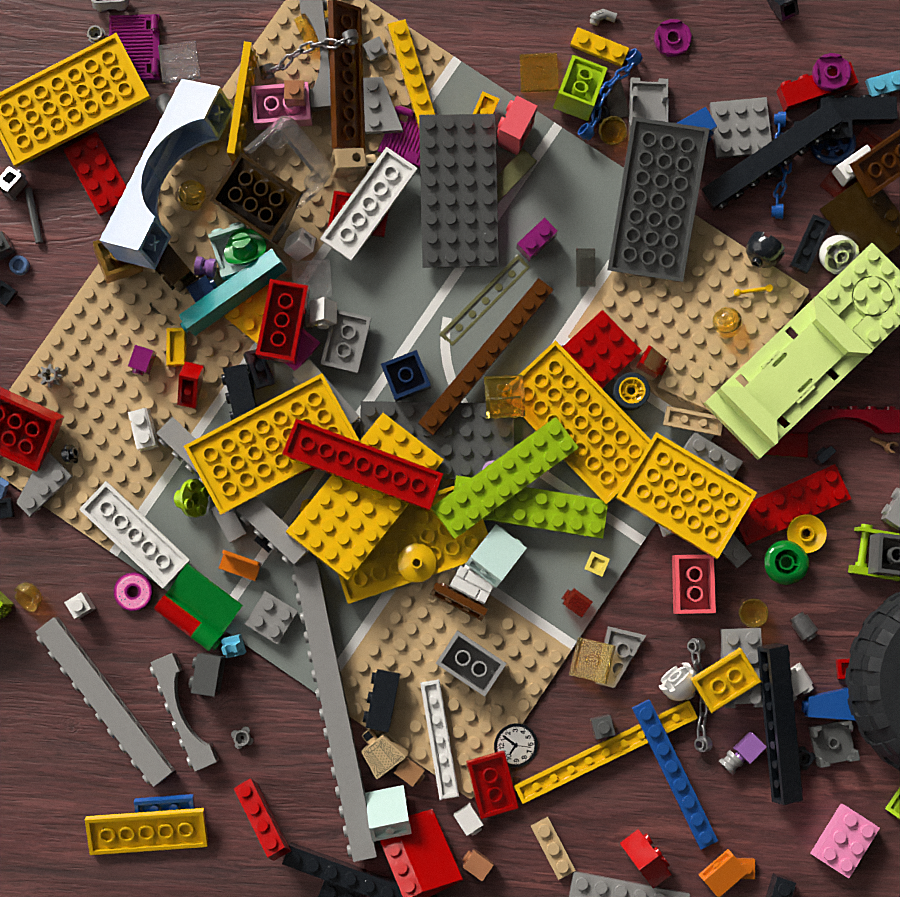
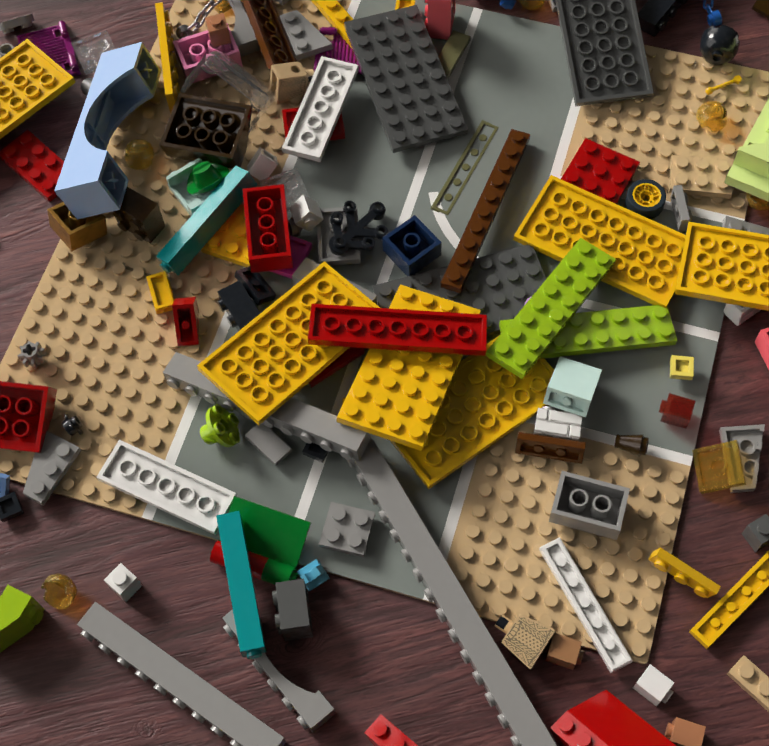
camera: 15 degrees left, 20 degrees down
(142, 360) = (128, 311): magenta brick -> none
(143, 429) = (148, 376): white brick -> none
(144, 591) = (171, 543): tile -> none
(171, 643) = (241, 585): none -> teal brick
(201, 288) = (170, 227): dark blue brick -> none
(205, 267) = (171, 209): medium lavender wheel -> none
(238, 741) = (348, 676): light grey plate -> none
(240, 565) = (294, 482): orange panel -> none
(361, 342) = (357, 229): none -> black plant
(381, 700) = (503, 578): black brick -> none
(387, 813) = (561, 702): light aqua panel -> none
(426, 567) = (485, 429): yellow dish -> none
(492, 784) = (665, 635): red plate -> none
(504, 396) = (521, 234): clear yellow slope -> none
(518, 744) = (669, 593): sticker -> none
(525, 742) = (684, 573): none -> yellow plate
(529, 619) = (632, 443): none -> dark brown cone
(536, 239) = (496, 96): magenta brick -> none
(585, 267) = (553, 109): clear smoke tile -> none
(652, 362) = (655, 164): red slope -> none
(660, 402) = (679, 204): none -> light grey plate
(692, 421) = (720, 207): tan plate -> none
(809, 244) = (757, 36): black plate -> none

